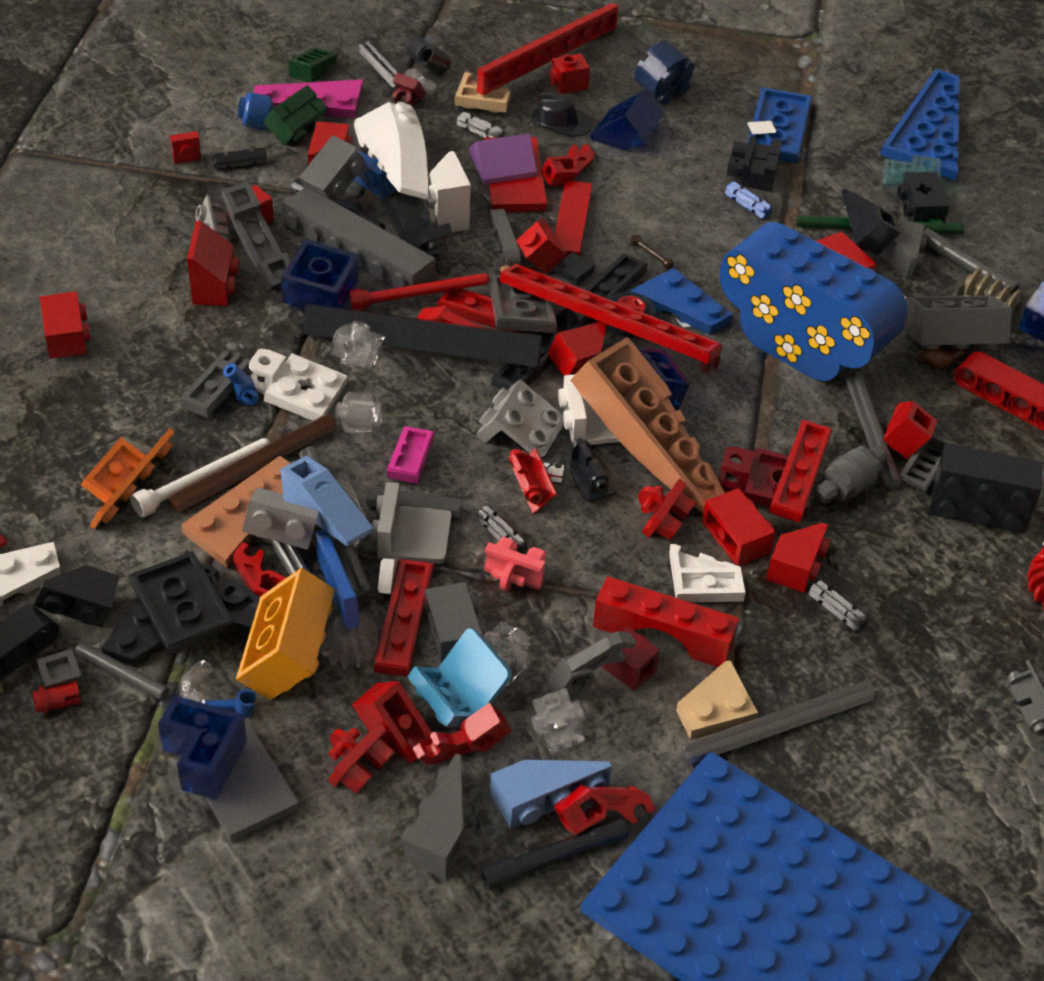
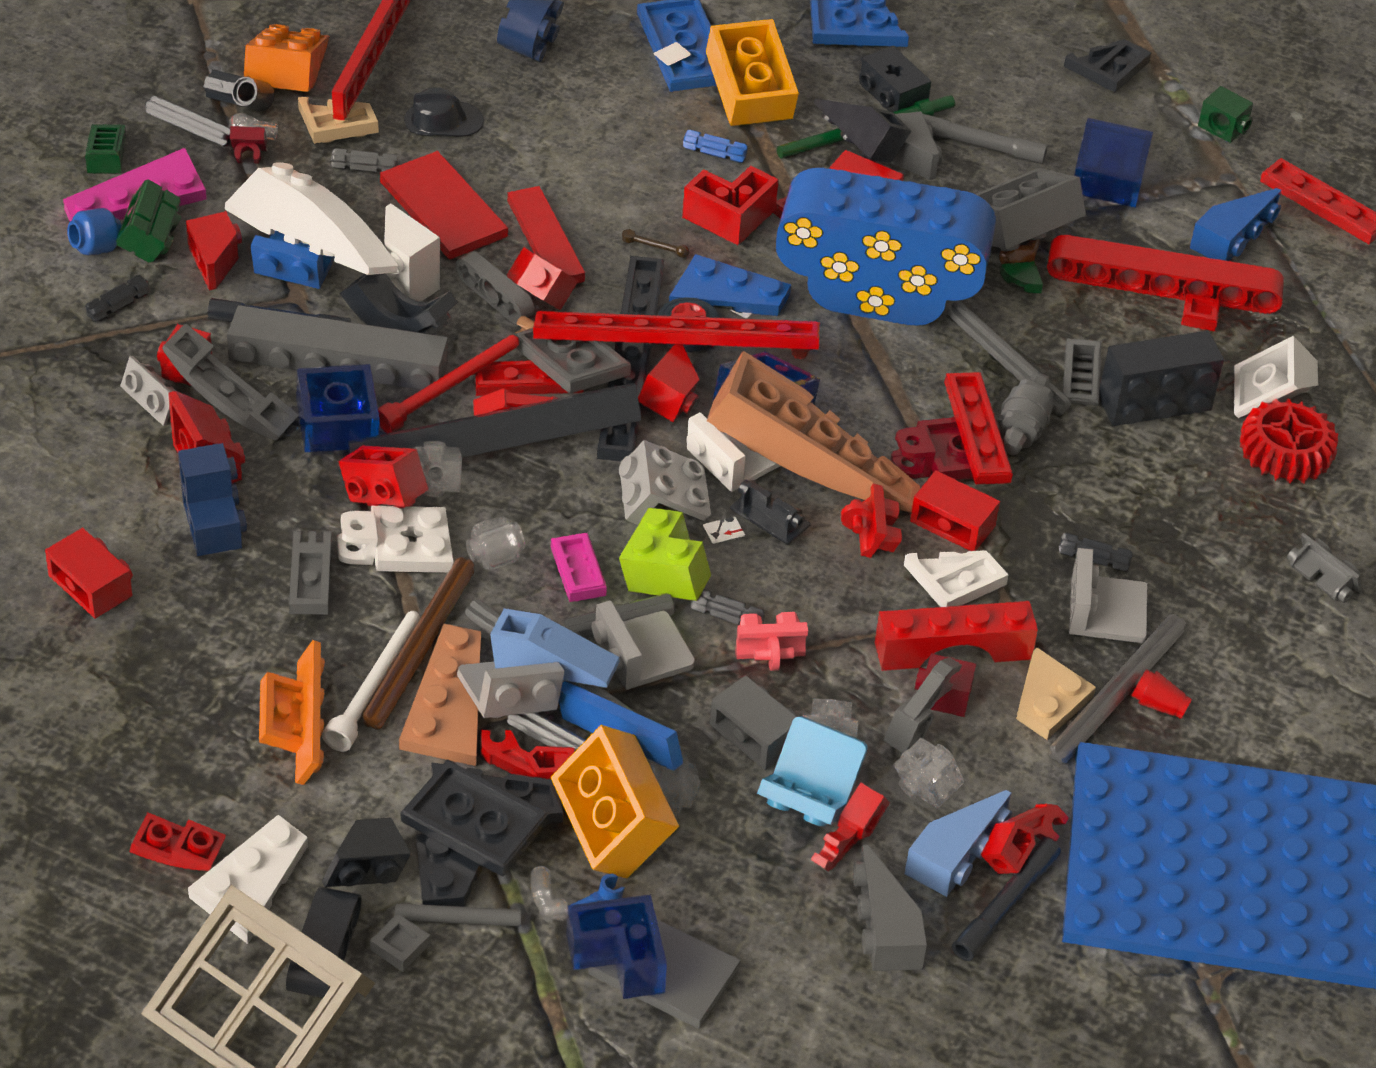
camera: 30 degrees left, 0 degrees up
(56, 697) = (410, 975): red pin -> none
(182, 306) = (211, 499): none -> dark blue brick
(185, 147) = (46, 307): red plate -> none
(243, 384) = (344, 563): blue arm -> none
(310, 335) = (383, 476): none -> red brick
(333, 169) = (263, 272): dark grey brick -> none
(371, 747) = (758, 889): red hips -> none
(387, 575) = (652, 695): white tile -> none
(394, 710) = (770, 840): red slope -> none
(403, 618) = (698, 737): red tile -> none
(474, 470) = (664, 558): none -> lime brick
(476, 43) = (286, 57): none -> orange slope
(504, 158) = (428, 190): medium lavender slope -> none
(533, 478) = (723, 543): red hinge -> none
(567, 167) = (501, 176): red piece -> none
(569, 73) = (419, 59): red brick -> none
(574, 268) = (590, 293): black tile -> none
(629, 122) = (526, 97): clear blue slope -> none
(714, 237) = (728, 207): none -> red brick
(755, 163) = (696, 99): black hips -> none
(796, 557) = (1031, 521): red slope -> none
(807, 155) = (752, 72): none -> light orange brick
(810, 742) = (1161, 694): none -> red cone
(813, 649) = (1106, 605): none -> light grey bracket
(894, 170) = (846, 59): clear light blue slope -> none
(909, 428) = (1049, 342): red slope -> none
(930, 372) = (1024, 275): none -> dark green tile
(977, 286) = (1018, 163): dark tan piece -> none

